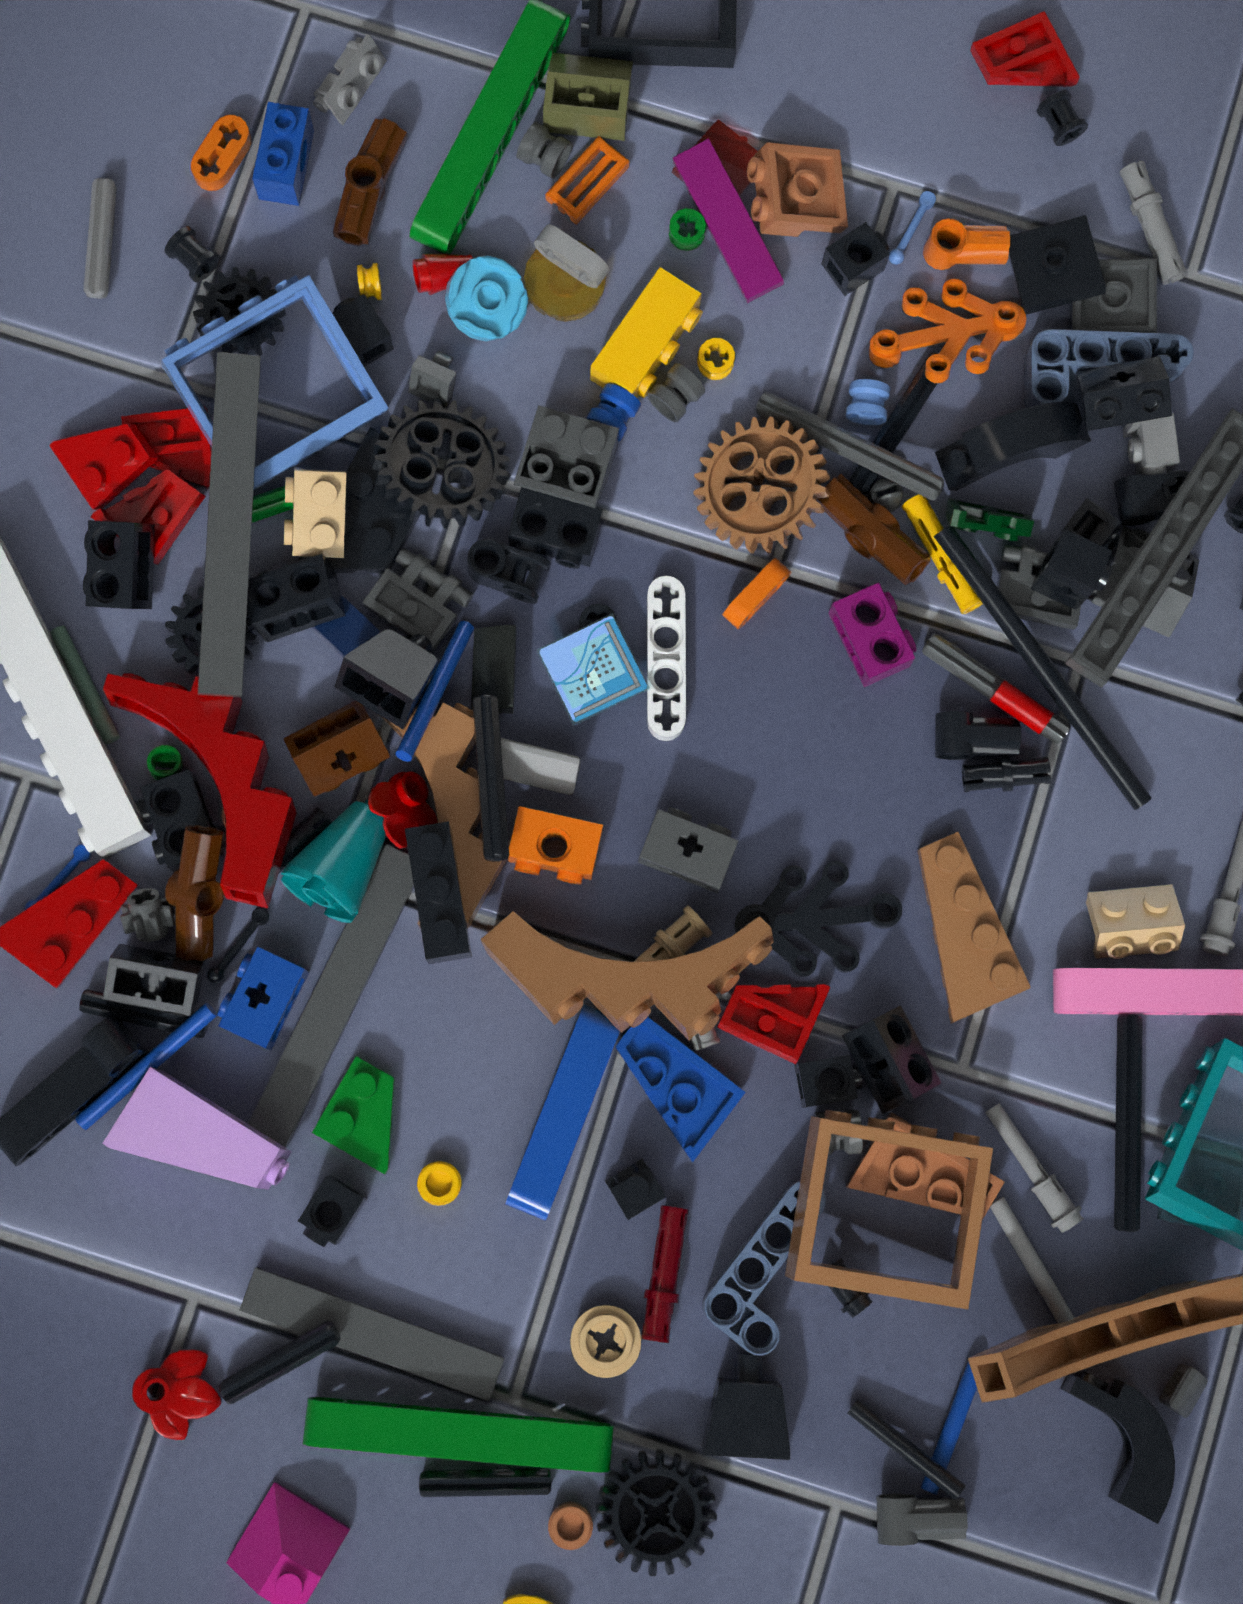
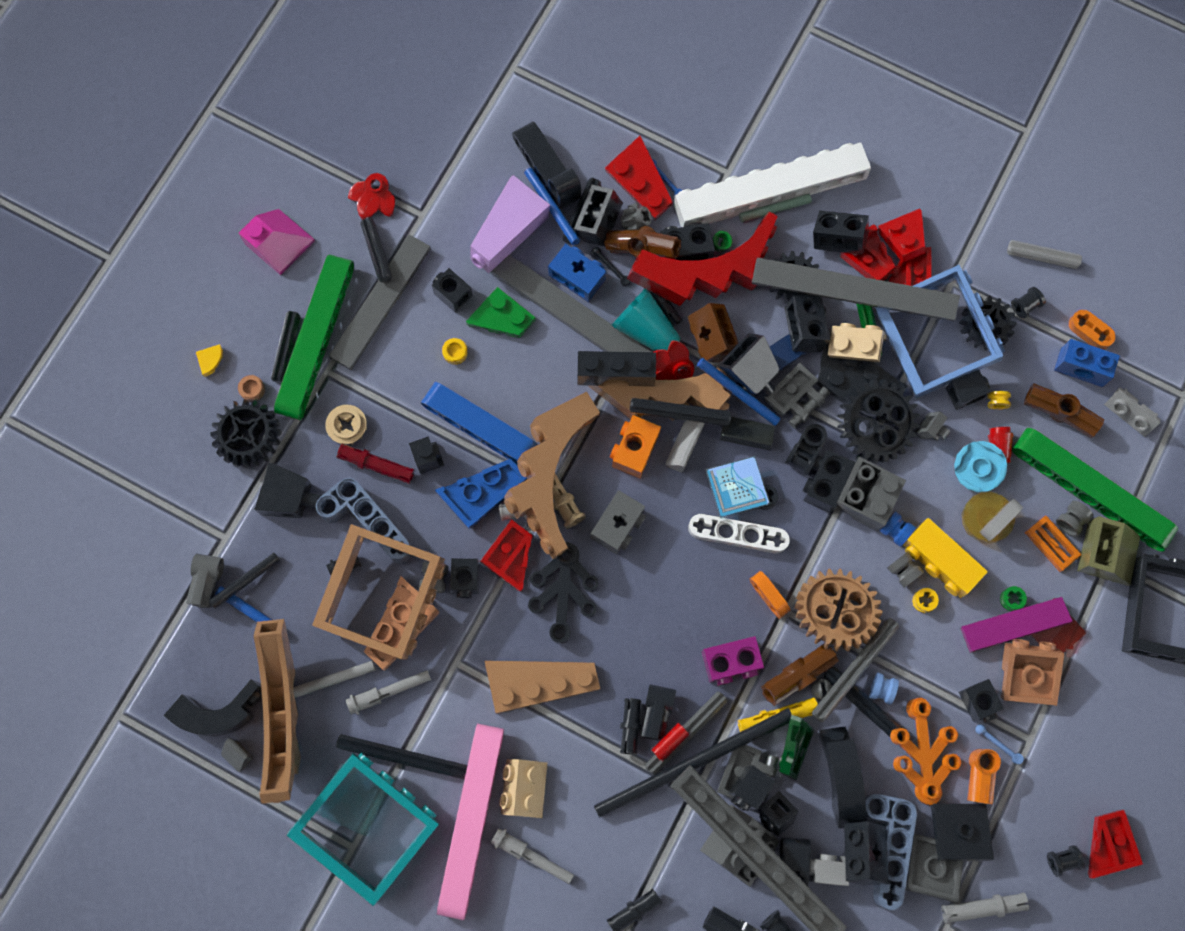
camera: 105 degrees right, 5 degrees down
(891, 1059) = (469, 612): black brick -> none

